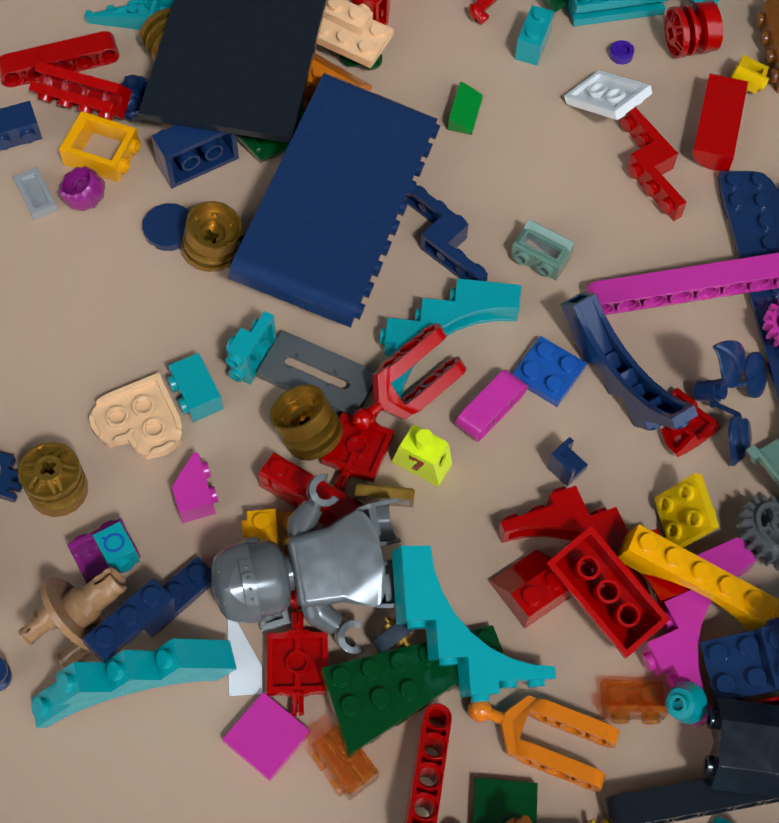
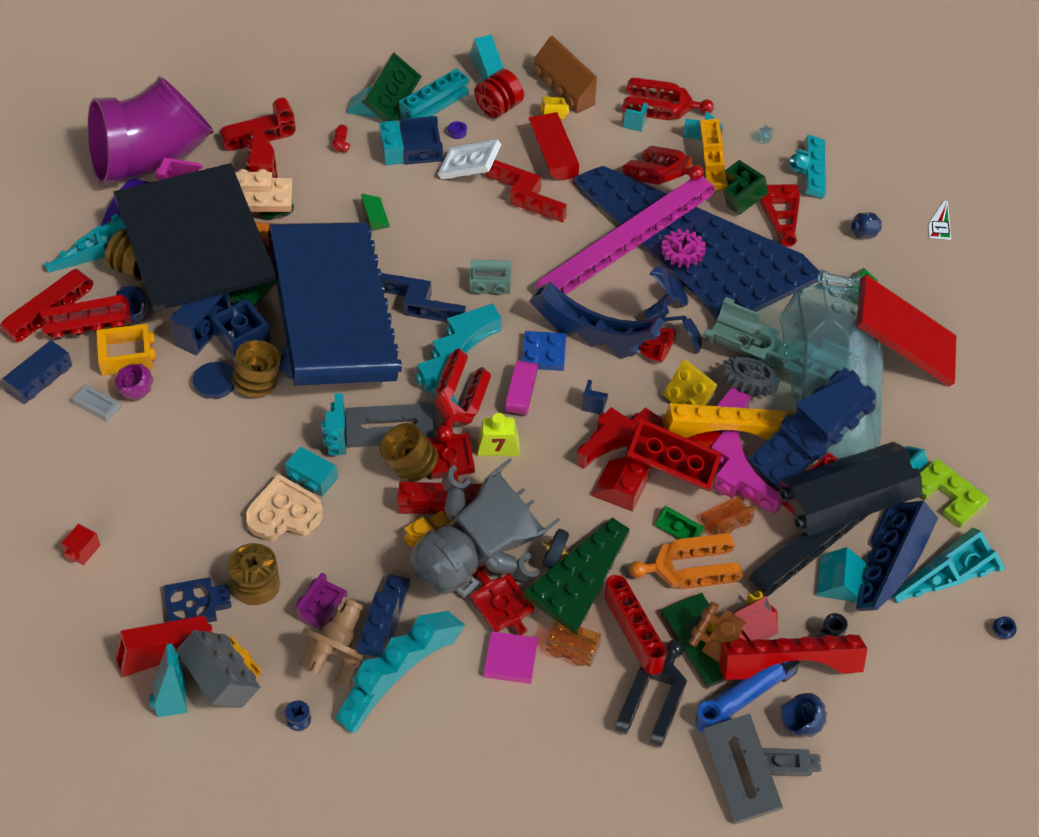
camera: 30 degrees left, 10 degrees down
(116, 548) = (331, 590): teal brick -> none
(192, 491) = (358, 536): dark pink slope -> none
(229, 178) = (239, 325): none -> dark blue brick
(248, 675) = (473, 630): white sticker -> none
(372, 493) = (480, 473): pearl gold tile -> none
(423, 605) = (595, 531): teal arch -> none
(571, 47) = (421, 140): none -> dark blue panel
(571, 681) = (678, 524): none -> green slope
(687, 702) = (763, 490): teal cone -> none

